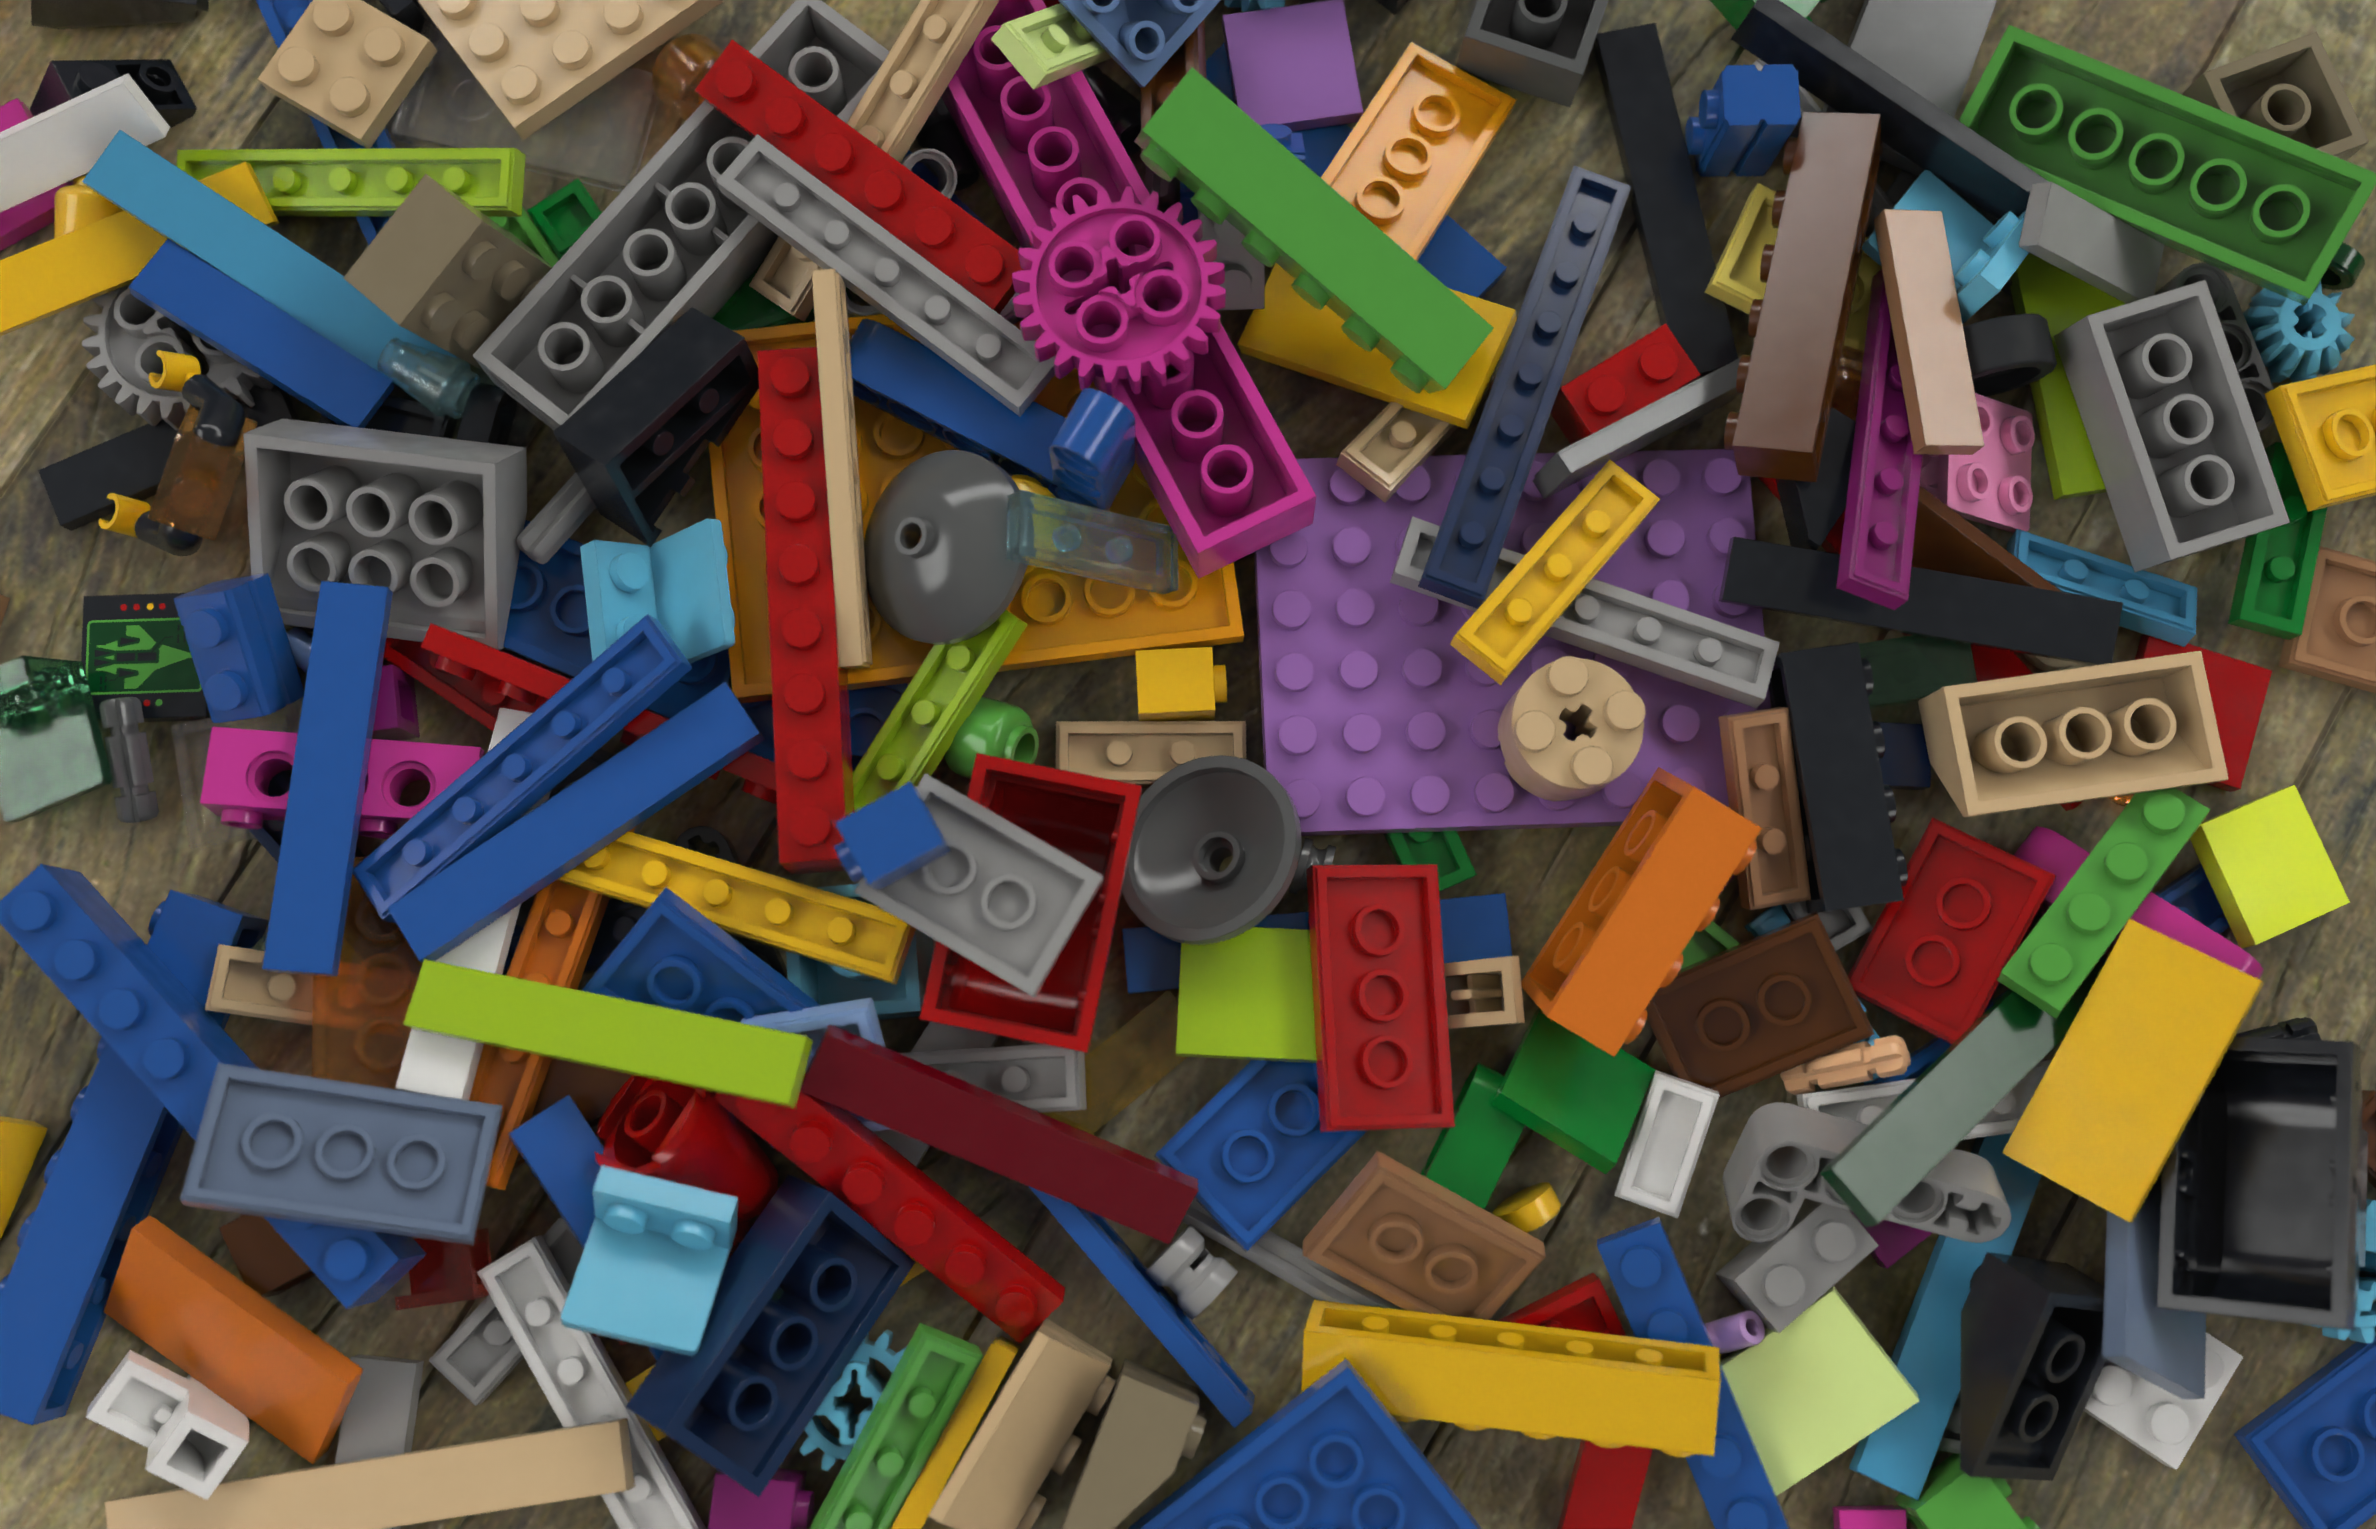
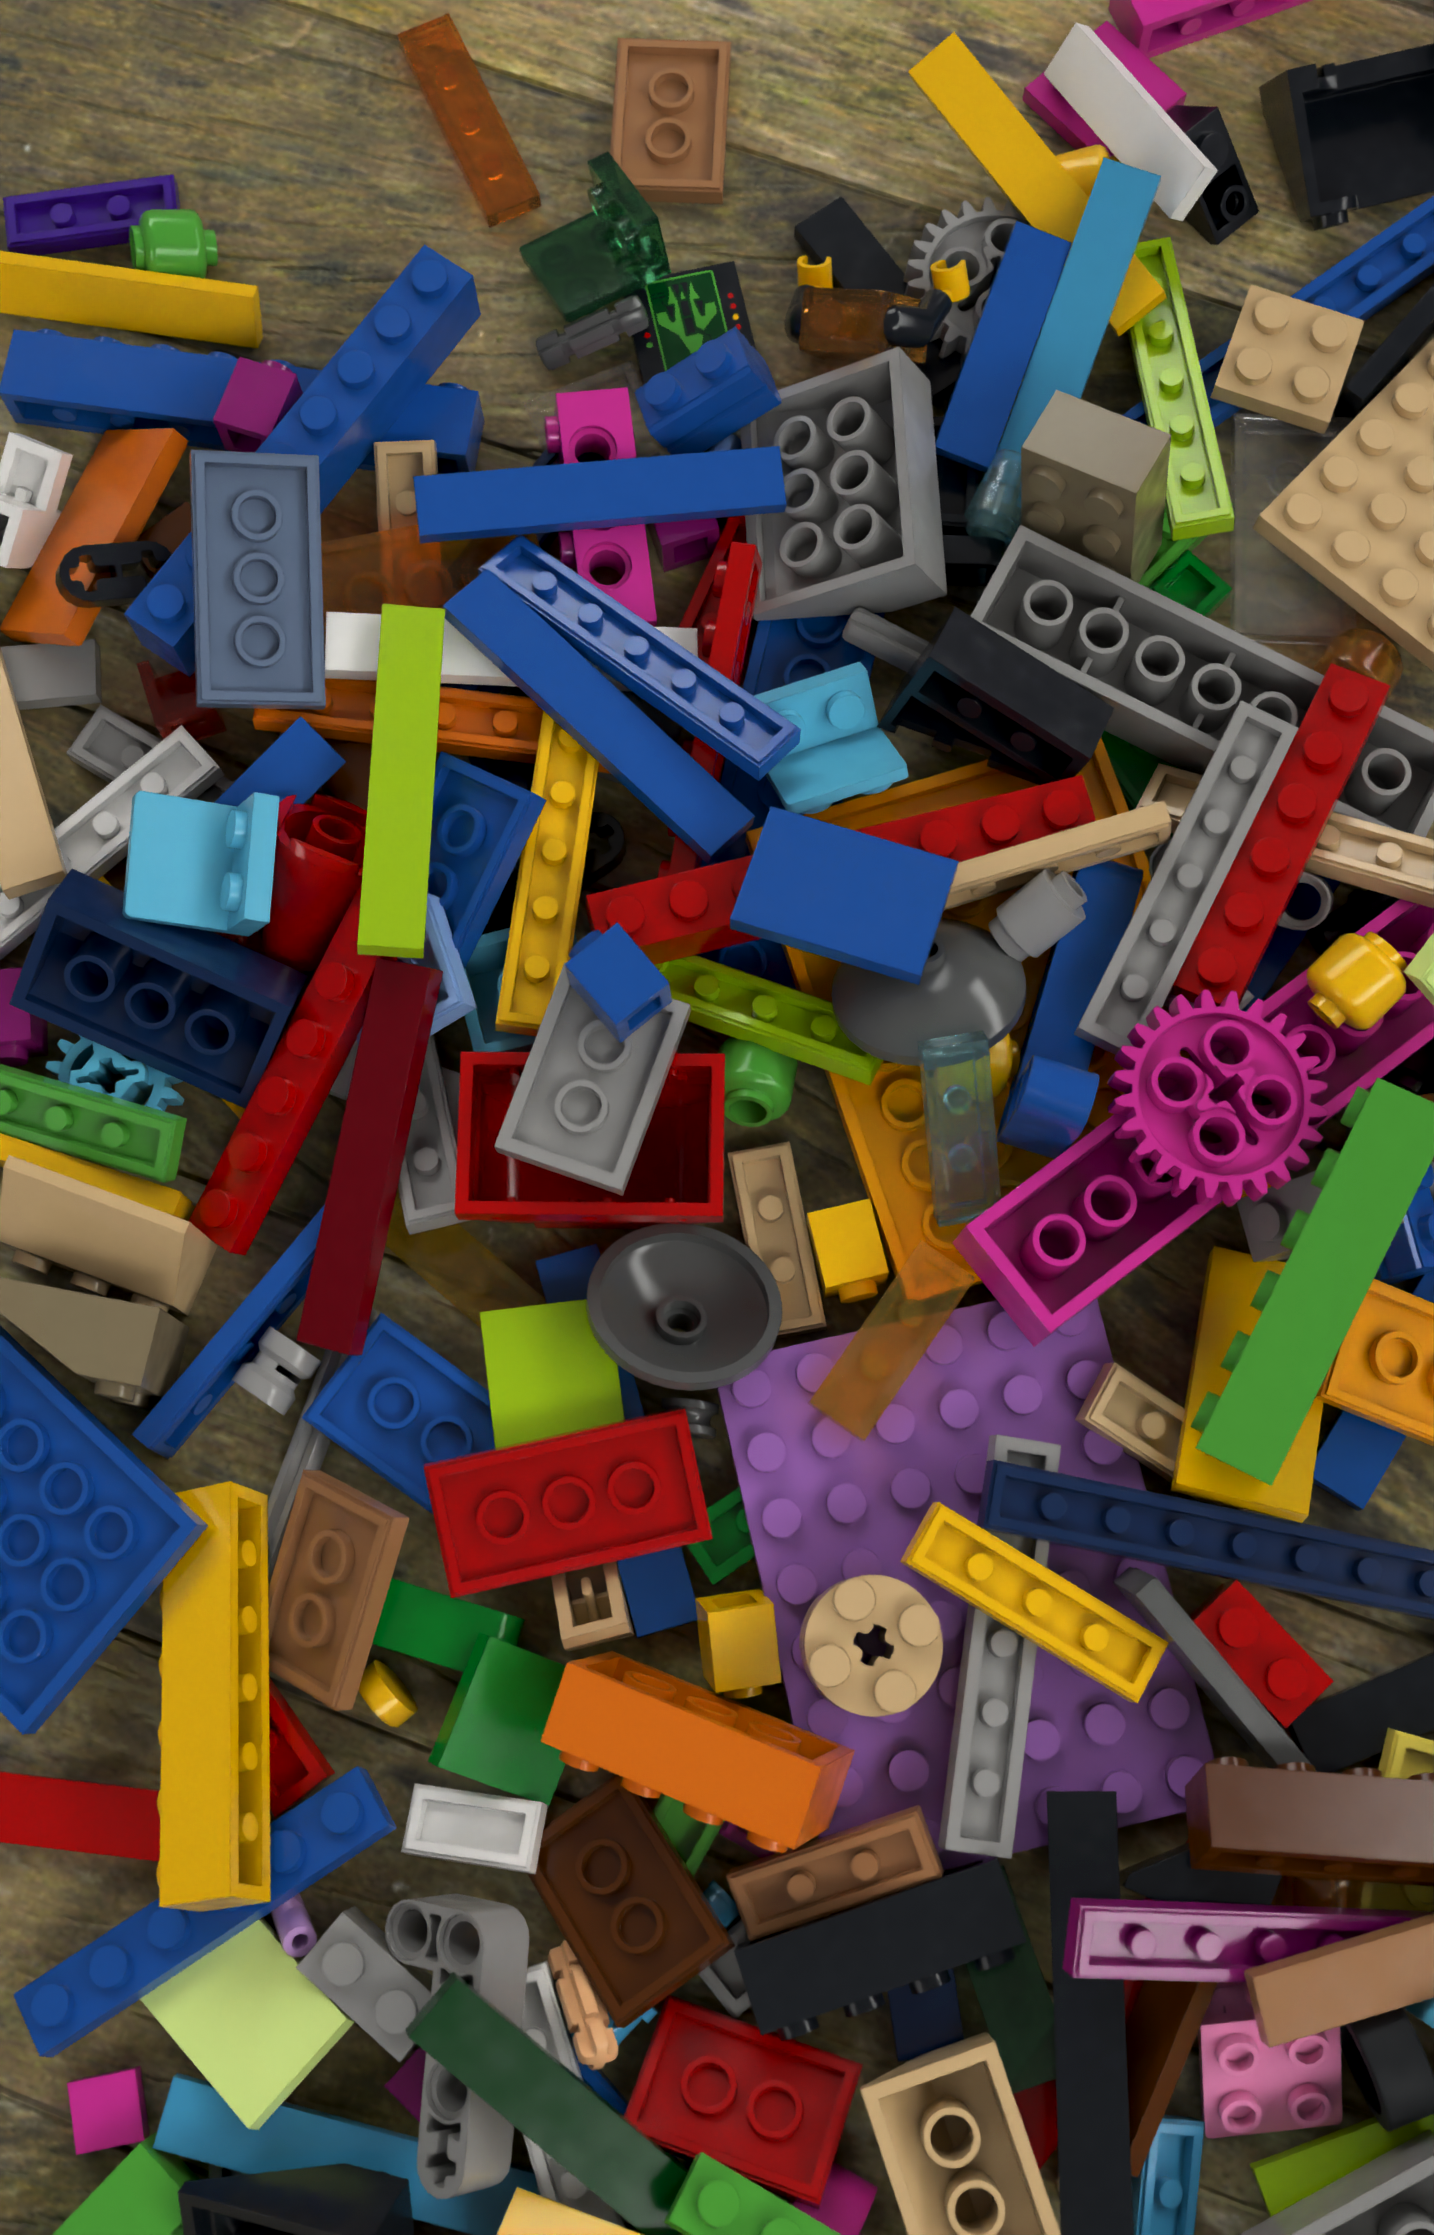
camera: 85 degrees right, 5 degrees down
(130, 1129) = (255, 403): none -> magenta brick
(275, 1313) = (112, 559): none -> black beam
(839, 601) = (844, 895): none -> blue tile
(893, 423) = (1038, 914): none -> light grey brick
(1028, 138) = (1356, 981): none -> yellow head
(1282, 655) = (891, 1341): none -> clear yellow tile
(1536, 859) = (738, 1642): none -> yellow brick

